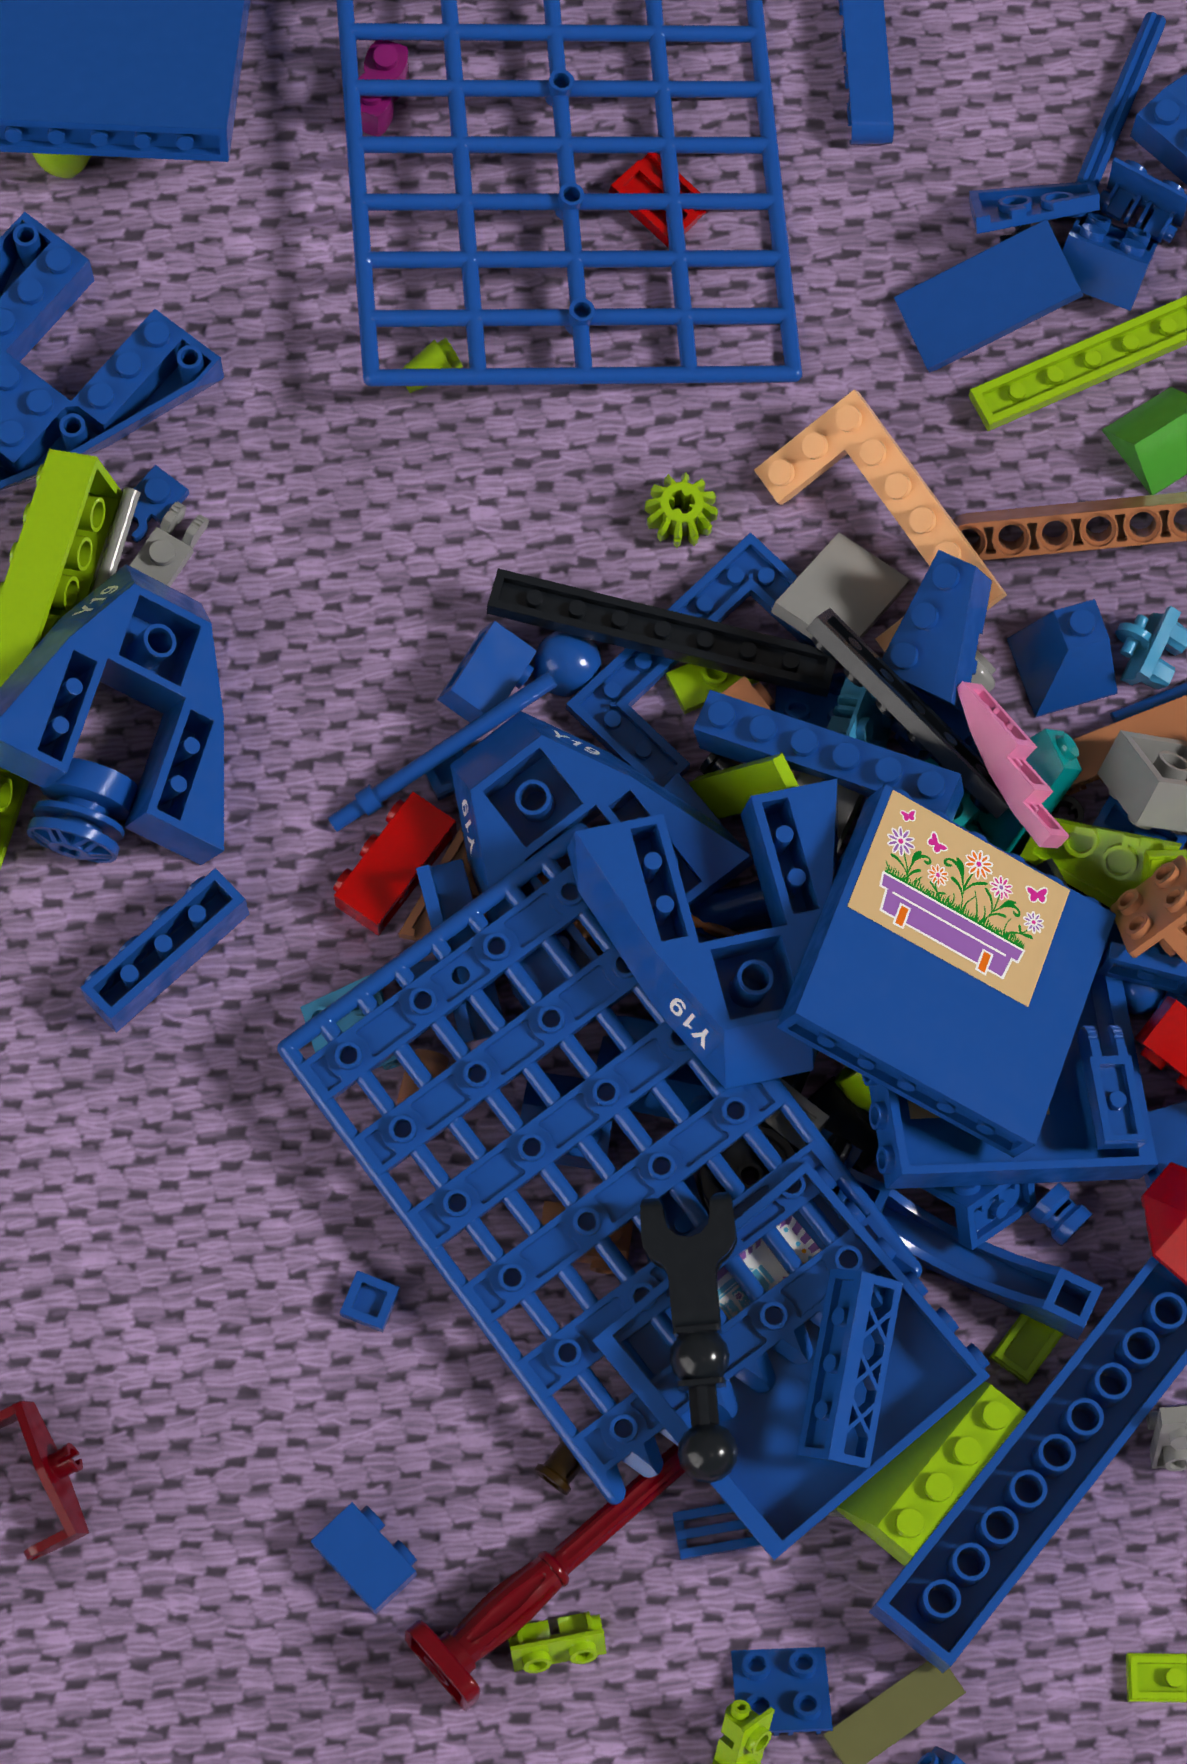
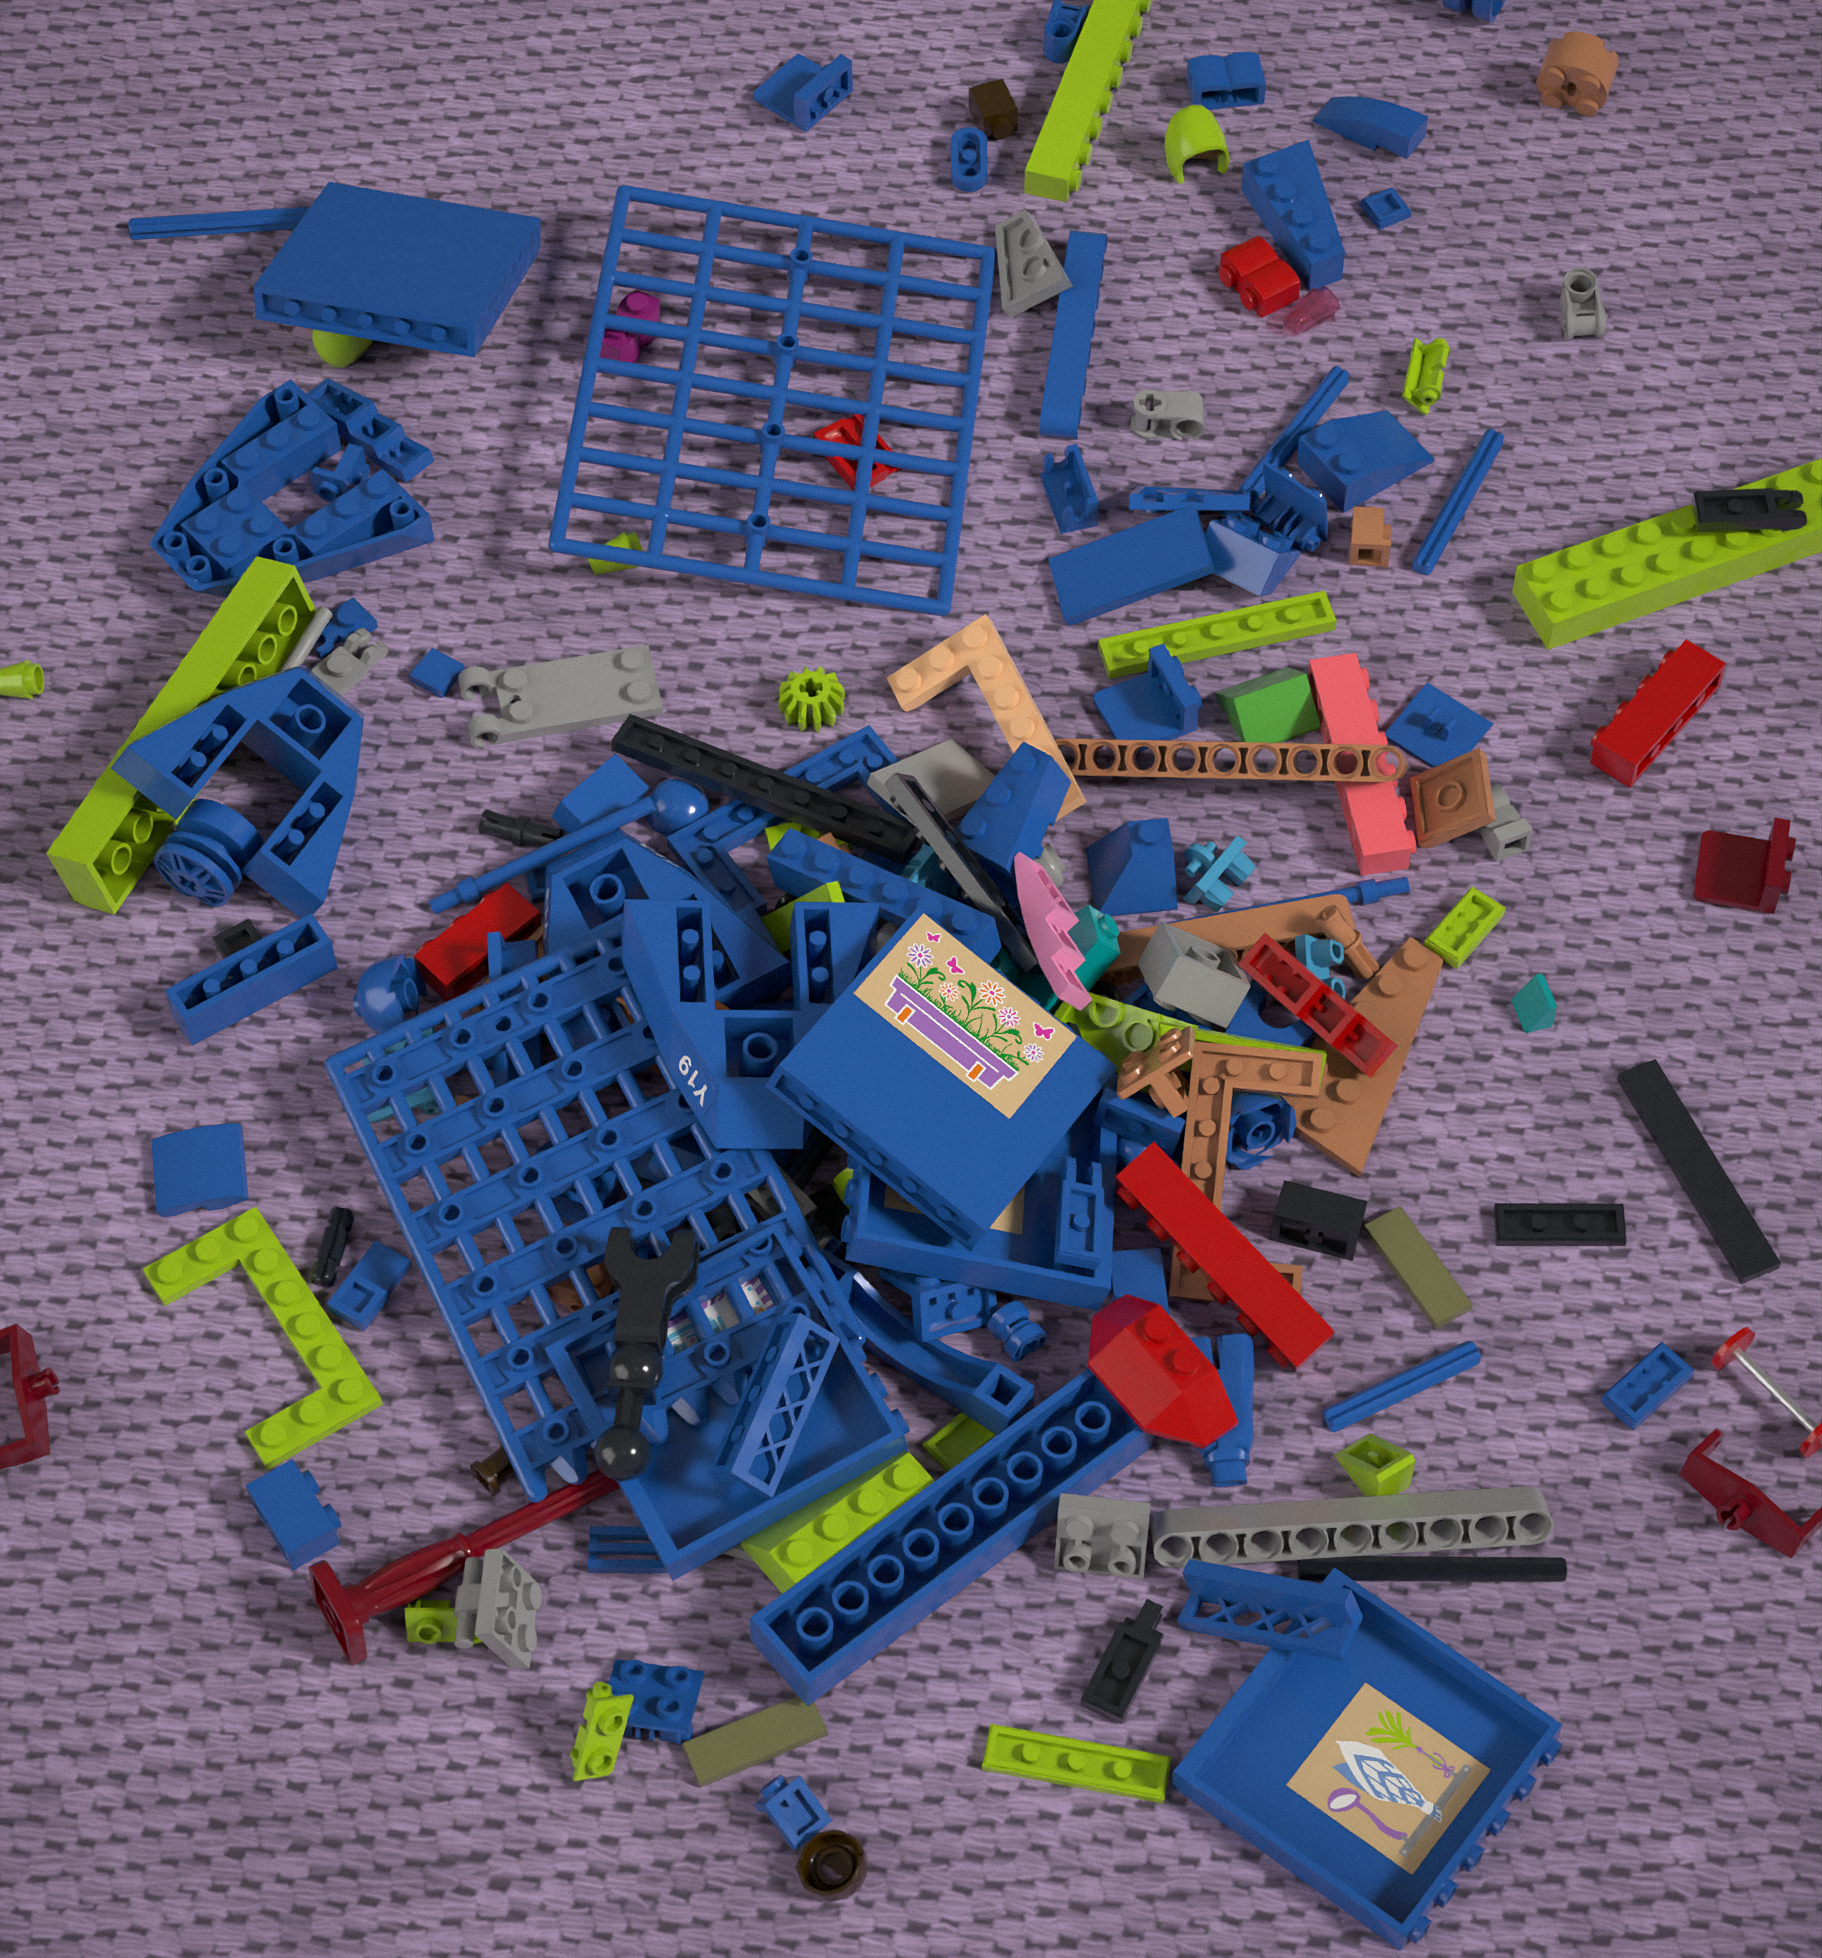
camera: 15 degrees right, 15 degrees down
(115, 313) = (348, 474): none -> blue bracket
(121, 254) = (363, 426): none -> blue slope
(138, 906) = (236, 938): none -> black plate
(163, 1178) = (199, 1169): none -> blue slope
(268, 541) = (436, 672): none -> blue tile
(316, 943) = (388, 991): none -> blue cylinder
(325, 1242) = (332, 1247): none -> black axle
(379, 1400) = (344, 1387): none -> lime plate
(384, 1257) = (383, 1266): none -> blue tile
(406, 719) = (518, 830): none -> black pin
(414, 545) = (563, 694): none -> light grey hinge
(610, 1629) = (499, 1606): none -> light grey plate
(900, 211) = (1070, 491): none -> blue hinge
(986, 99) = (1171, 414): none -> light grey piece
(1041, 457) = (1152, 704): none -> blue bracket

